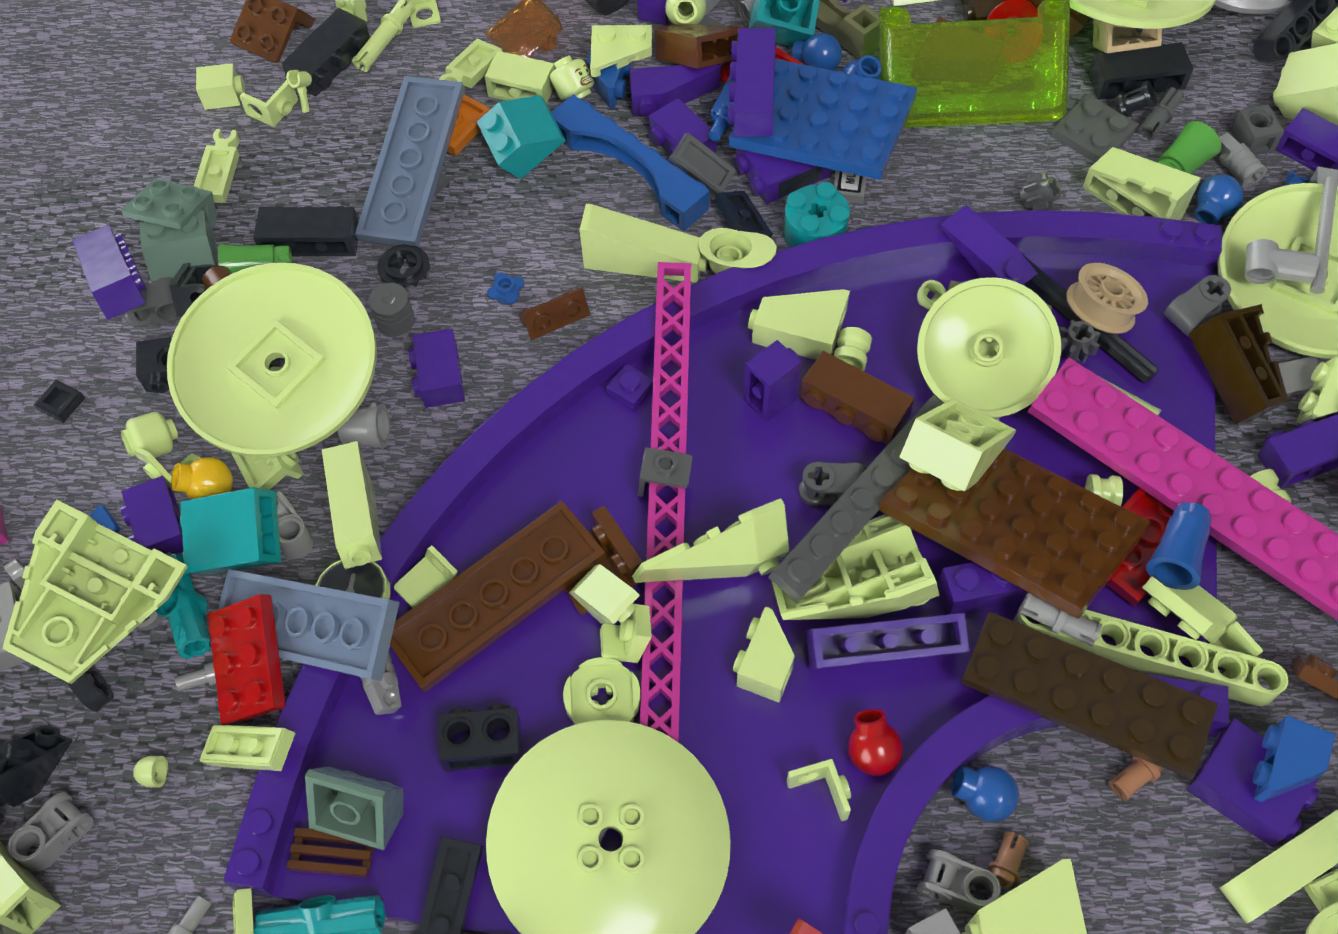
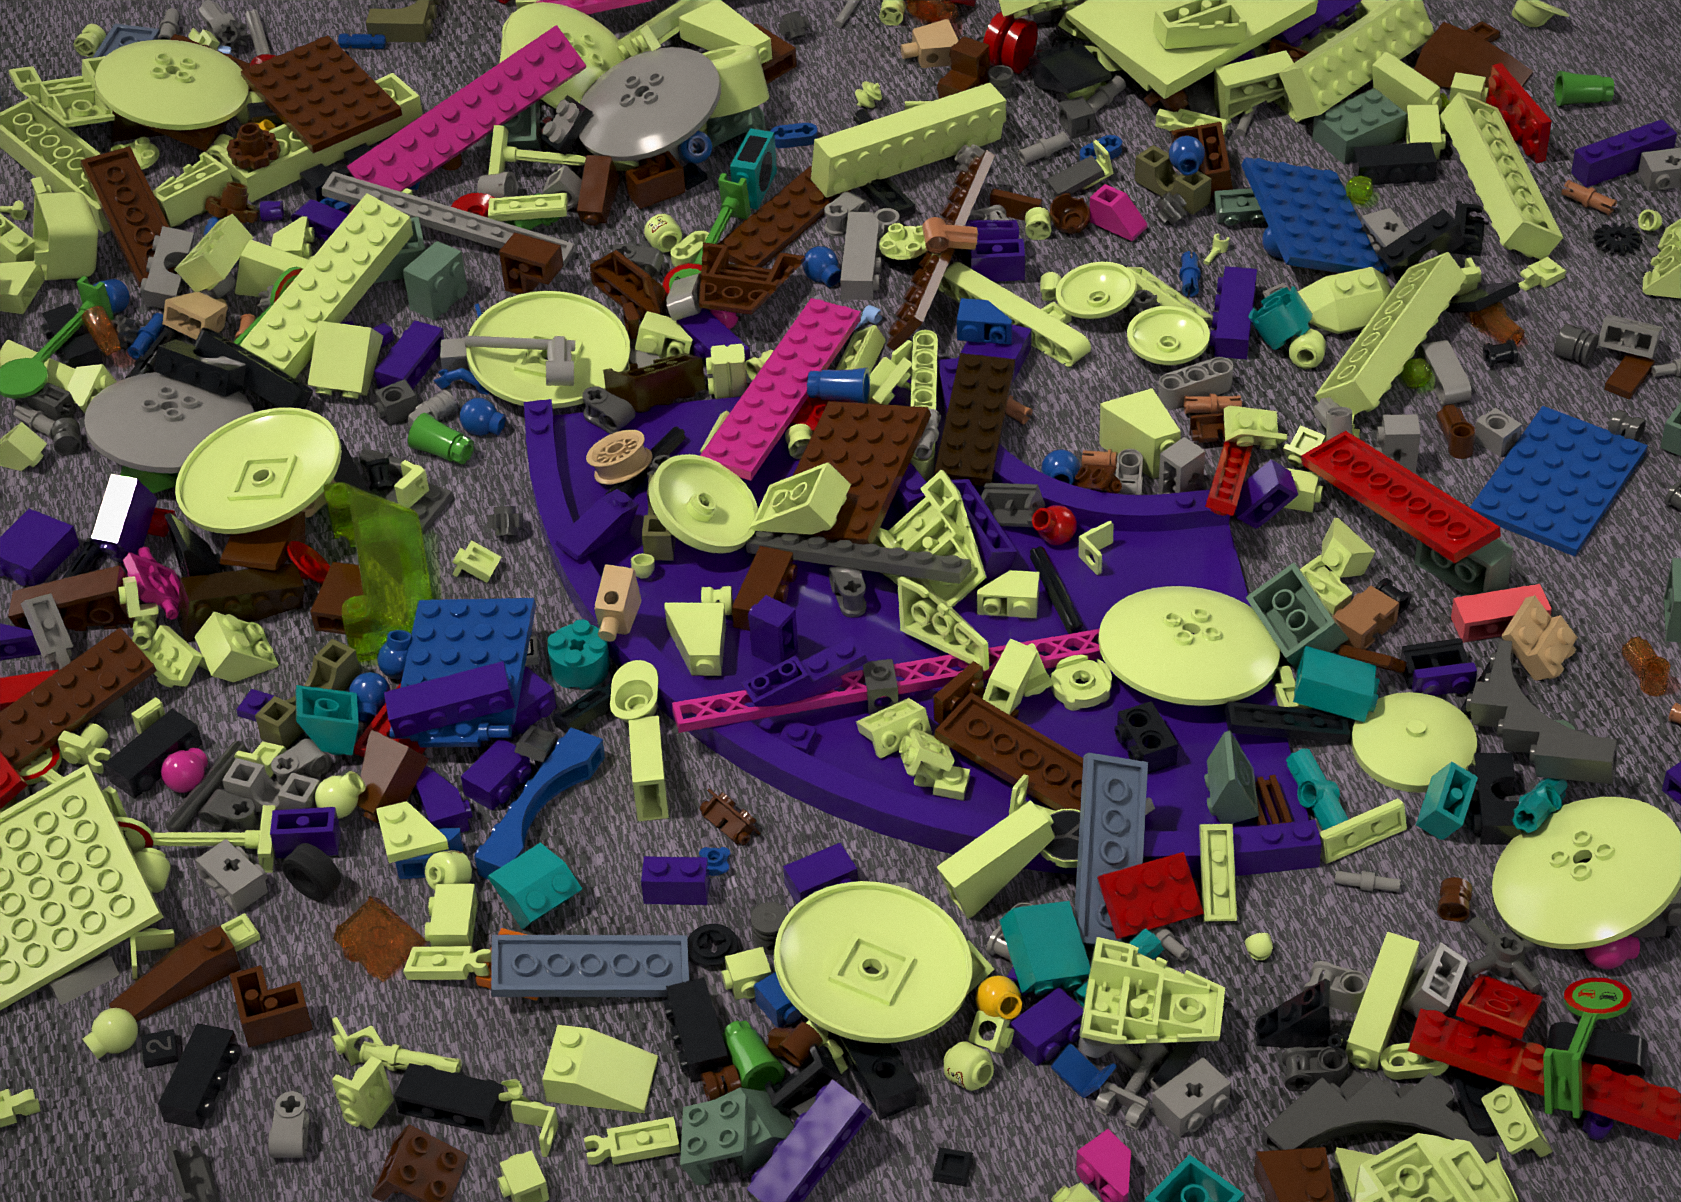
camera: 105 degrees left, 15 degrees down
(238, 231) = (715, 1087): none -> reddish brown wheel
(302, 152) = (597, 1071): none -> yellowish green slope
(355, 275) = (744, 971): none -> yellowish green brick
(485, 245) = (675, 880): none -> dark purple brick
(513, 512) = (944, 783): none -> yellowish green plate
(539, 490) = (924, 748): none -> yellowish green bracket
(606, 476) = (891, 724): none -> yellowish green bracket
(677, 382) = (799, 680): none -> dark purple slope
(768, 717) = (1056, 590): none -> black axle
(845, 234) = (617, 601): none -> tan torso
(921, 699) = (1013, 503): none -> dark grey hinge
(947, 826) = (1098, 478): none -> reddish brown hinge
(986, 162) = (476, 561): none -> yellowish green bracket
(1103, 113) = (412, 485): none -> yellowish green bracket
(1140, 185) = (489, 456): yellowish green wedge -> none
(1245, 436) = (728, 371): none -> yellowish green brick
(1264, 606) = (862, 349): none -> yellowish green slope

